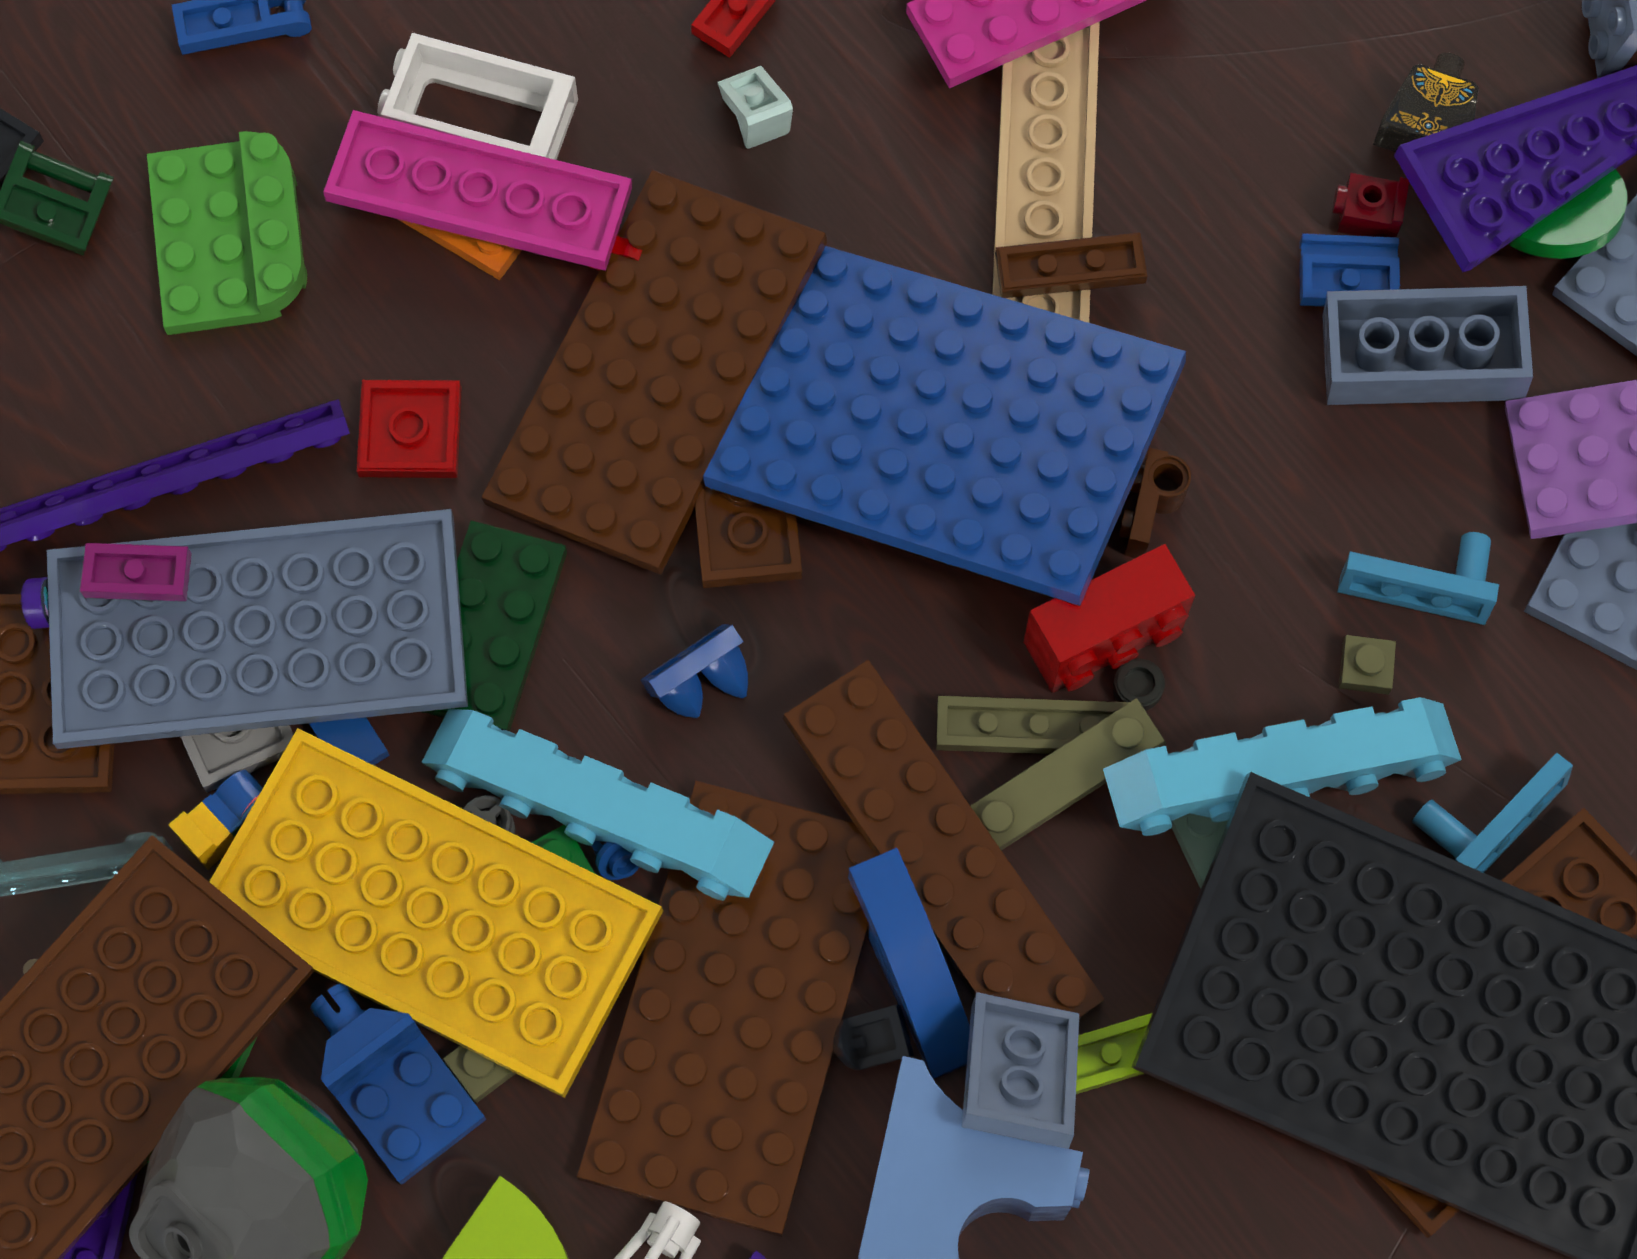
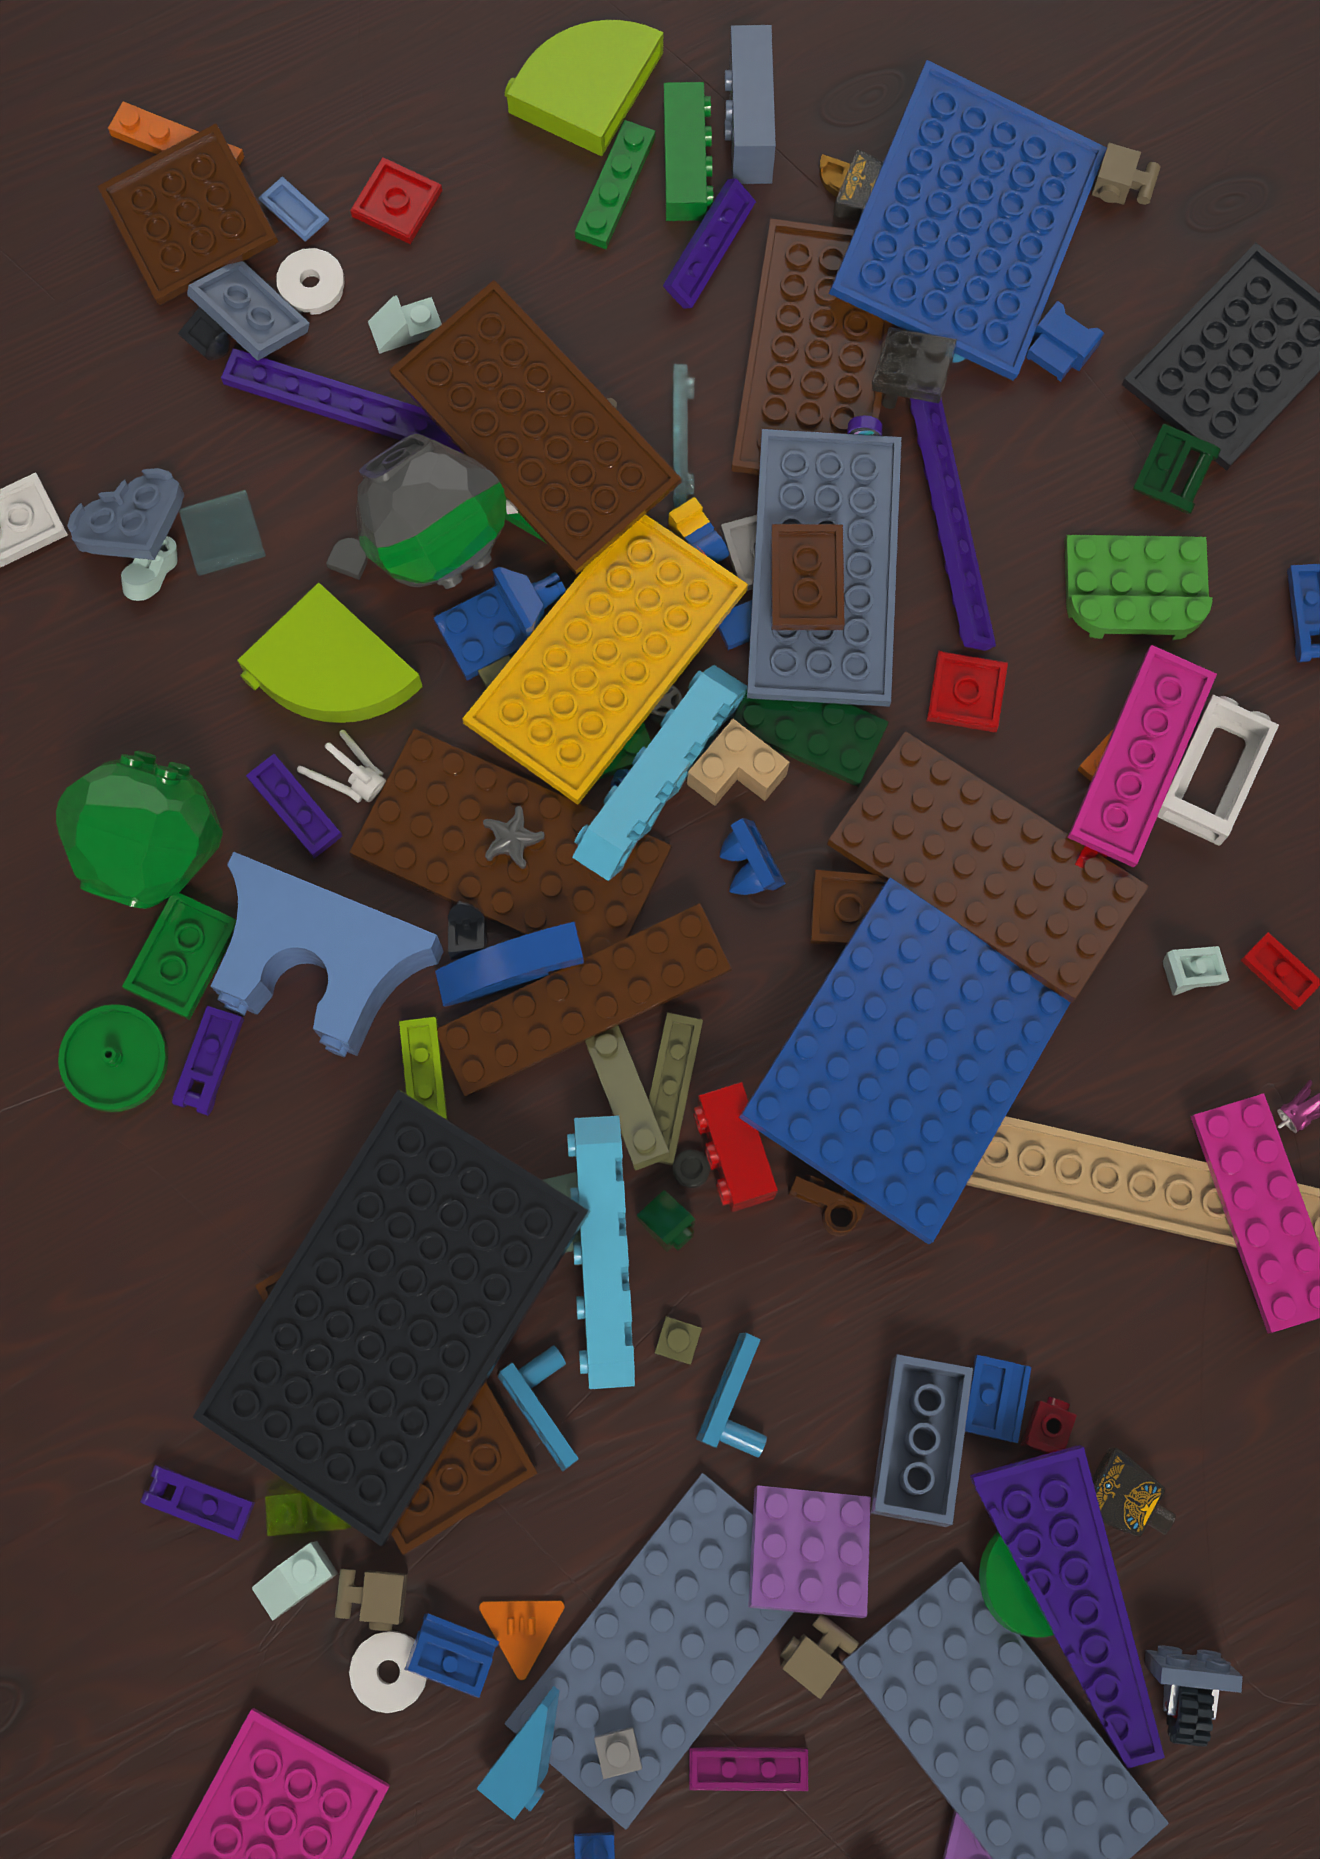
camera: 100 degrees right, 5 degrees up
(135, 572) = (872, 488): magenta plate -> none
(283, 639) = (807, 577): none -> reddish brown plate
(557, 705) = (740, 757): none -> tan brick
(728, 993) = (511, 838): none -> dark grey animal
(1021, 1071) = (413, 1015): sand blue plate -> none
(1071, 265) = (1026, 1179): reddish brown tile -> none
(1223, 691) = (667, 1222): none -> dark green slope

